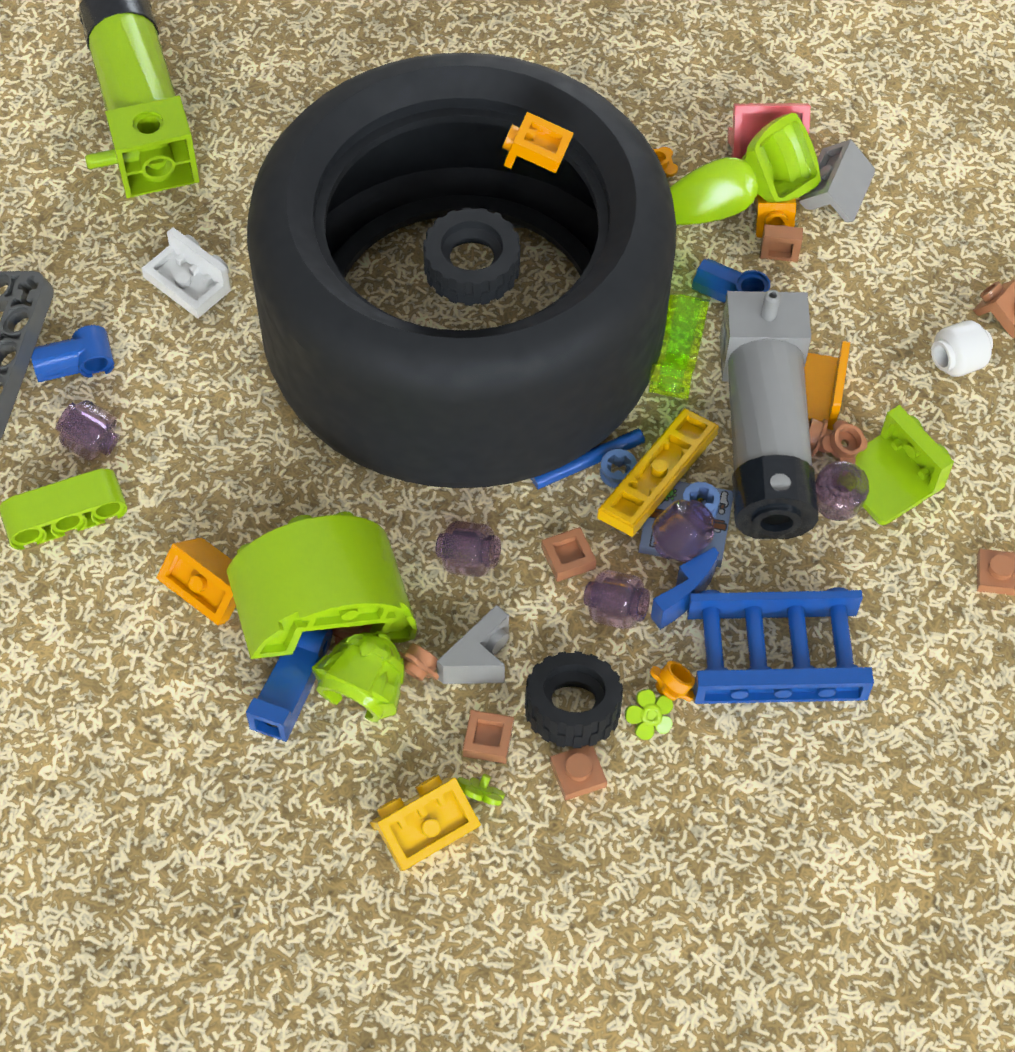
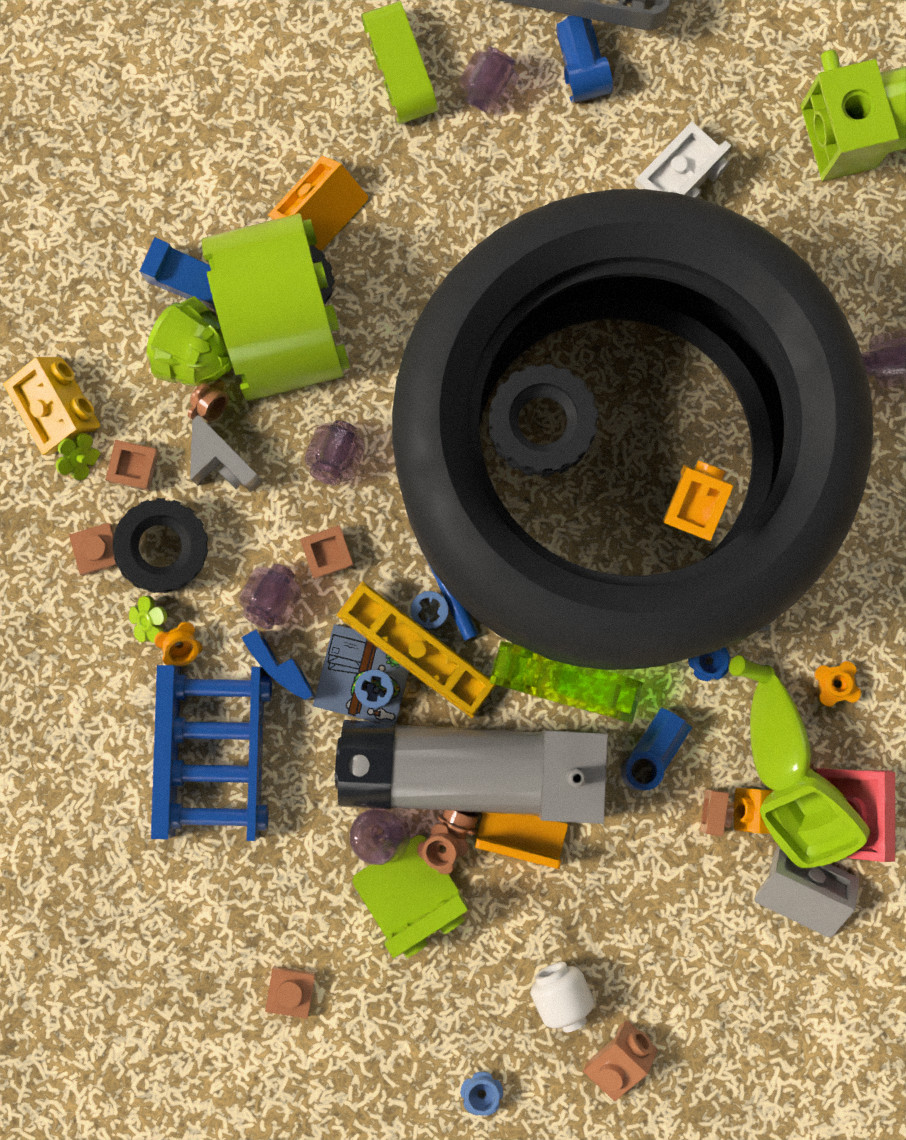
camera: 95 degrees right, 25 degrees up
(683, 530) = (328, 664): clear purple head -> none

